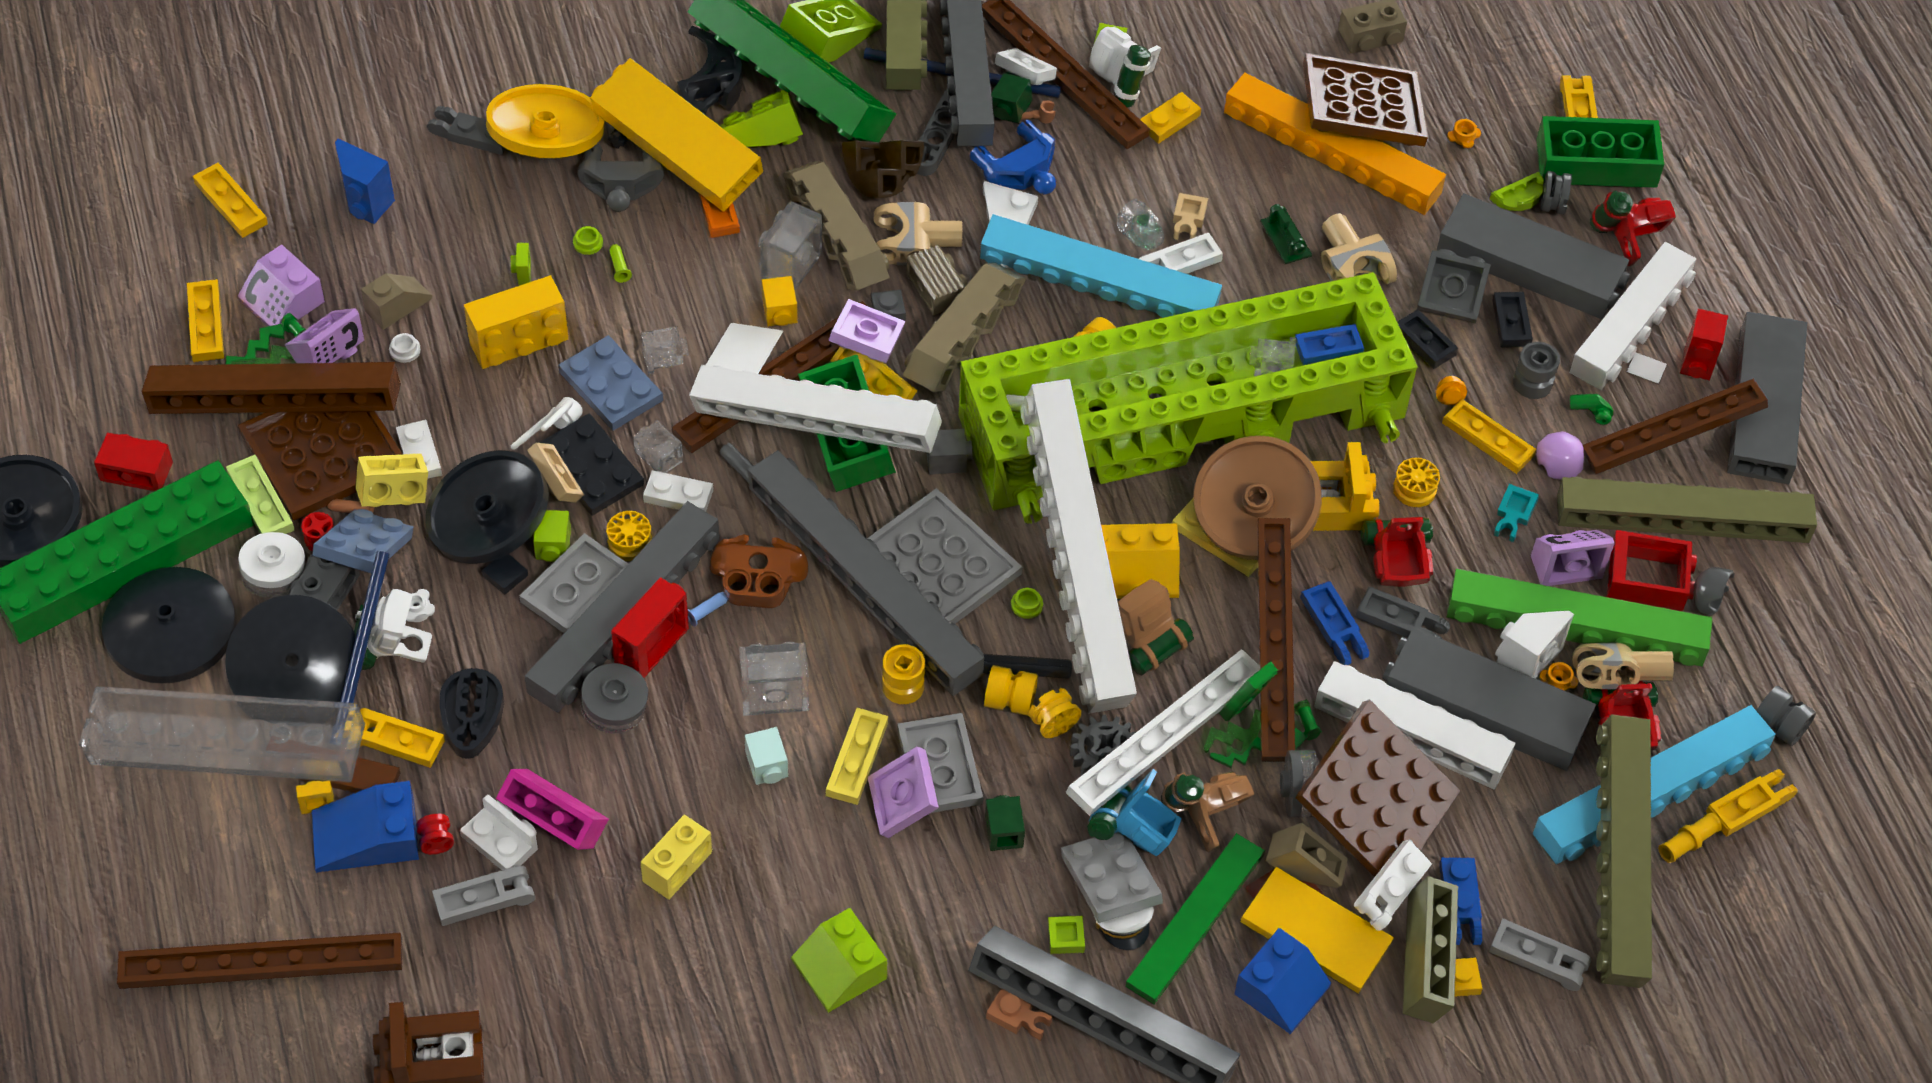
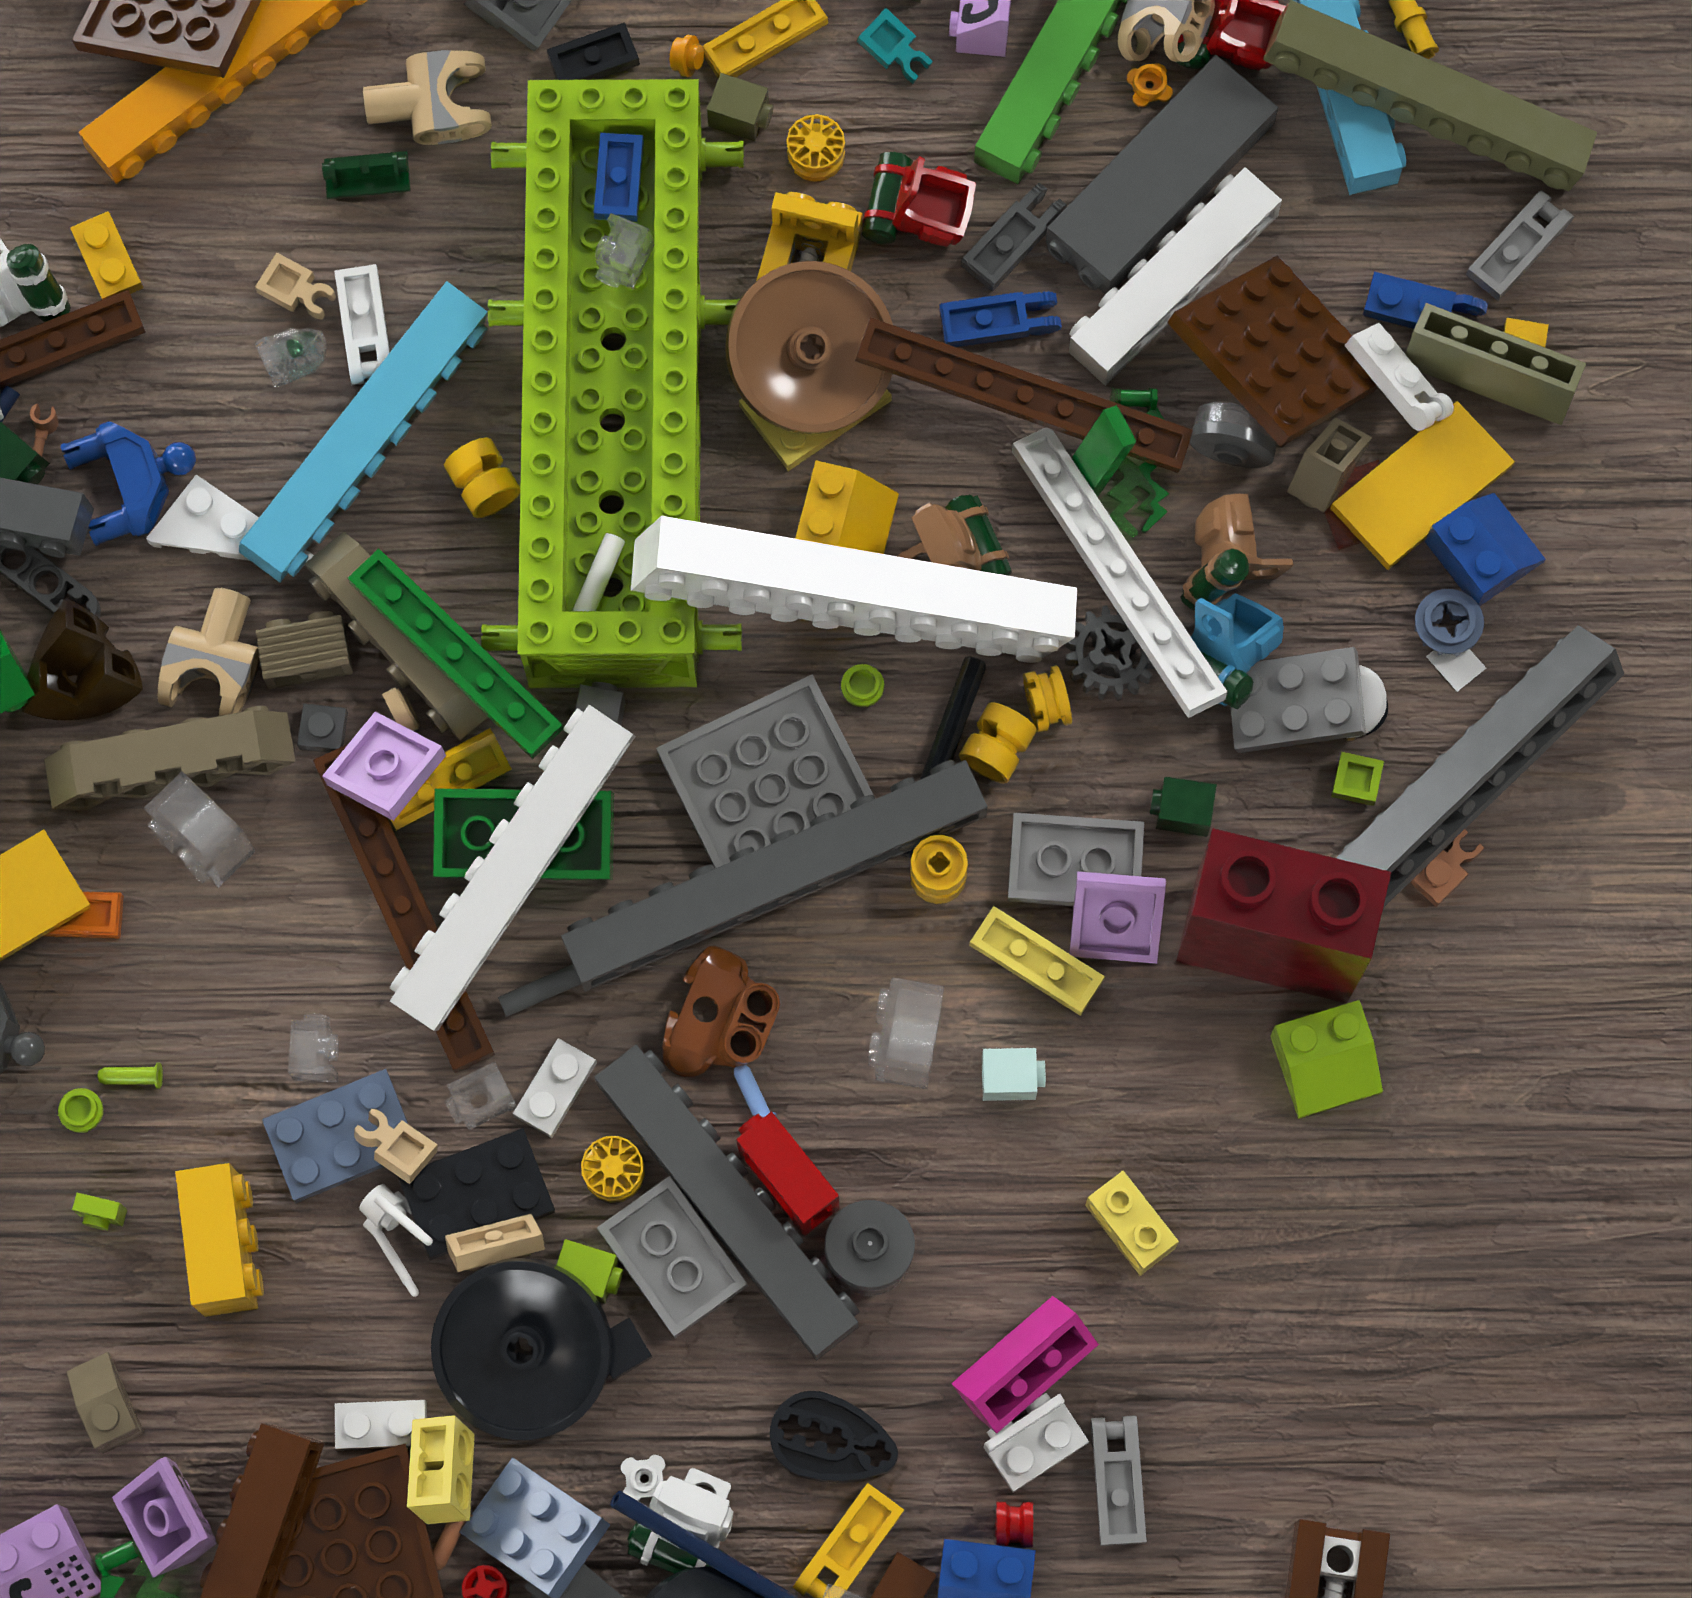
camera: 70 degrees left, 20 degrees up
(404, 348) = (196, 1409): white plate -> none
(607, 404) = (399, 1149): none -> tan plate
(744, 347) = (343, 941): white sticker -> none
(779, 301) = (278, 871): yellow brick -> none
(911, 338) = (401, 709): none -> tan tile
(925, 870) = (1283, 916): none -> dark red brick
(957, 338) = (455, 653): none -> green plate
(1185, 989) = (1458, 669): none -> white sticker
(1194, 919) = (1369, 620): green tile -> none
(1218, 959) = (1459, 607): none -> sand blue gear
(1425, 428) = (739, 107): none -> olive brick
(1533, 641) = (1118, 98): white slope -> none

